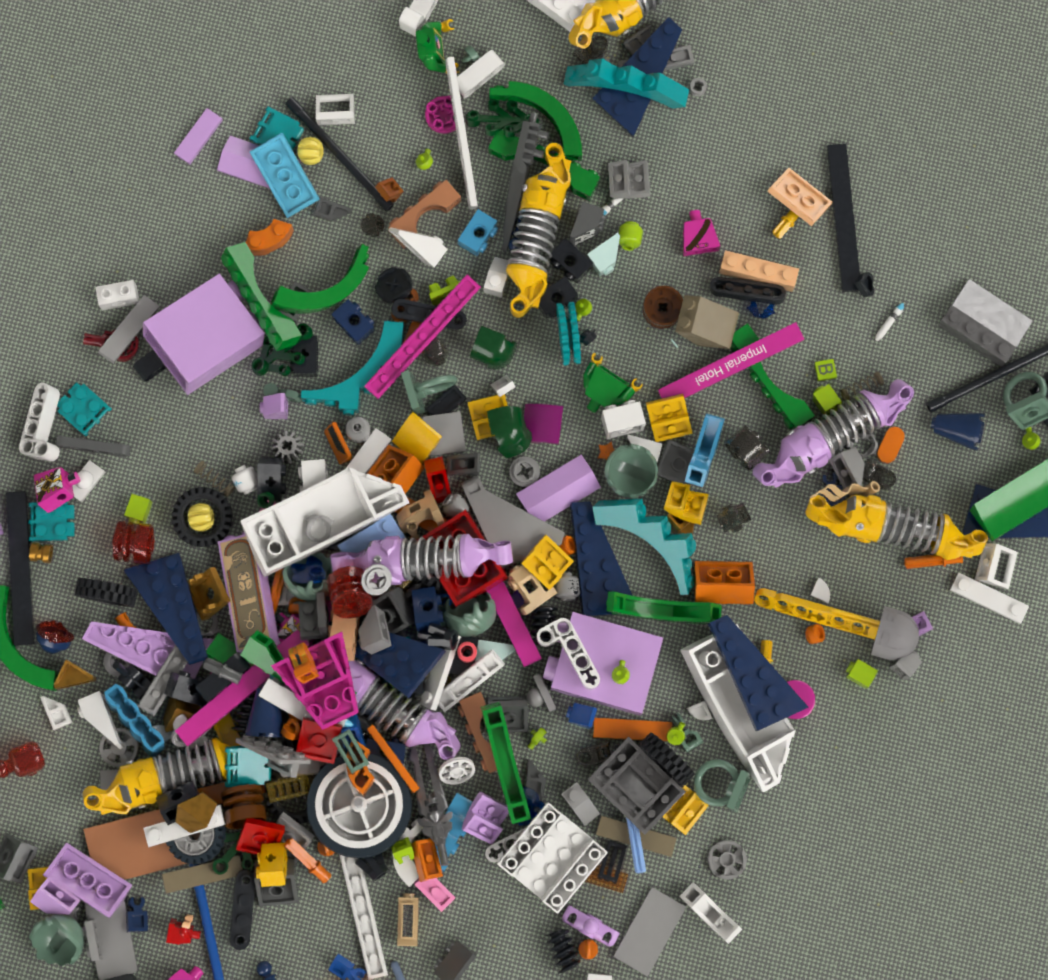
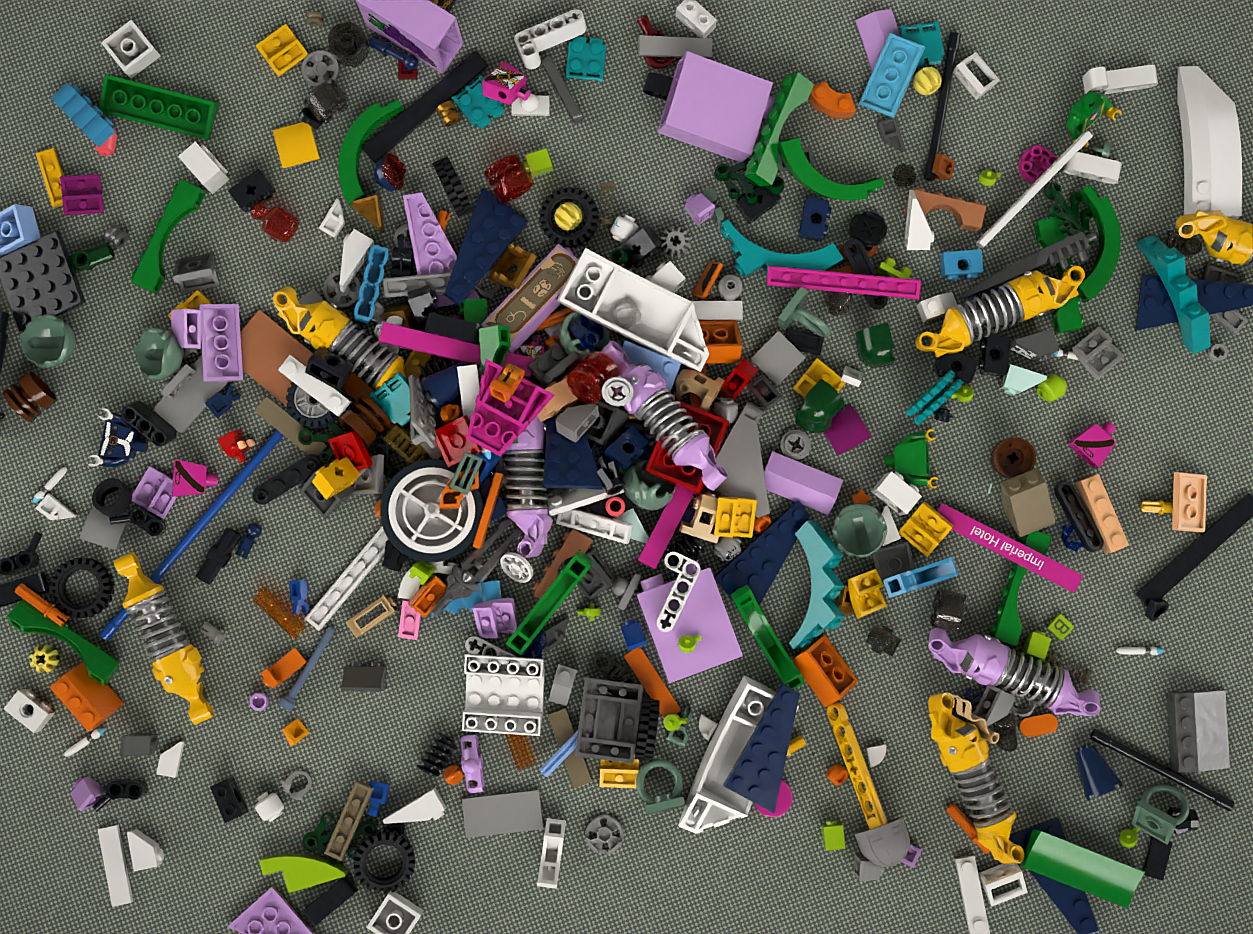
camera: 50 degrees right, 5 degrees up
(195, 812) = (329, 387): pearl gold slope -> none
(222, 670) = (456, 324): dark grey axle -> none
(313, 866) = (360, 502): orange axle -> none
(417, 437) = (758, 339): yellow slope -> none
(608, 877) = (520, 749): black tile -> none

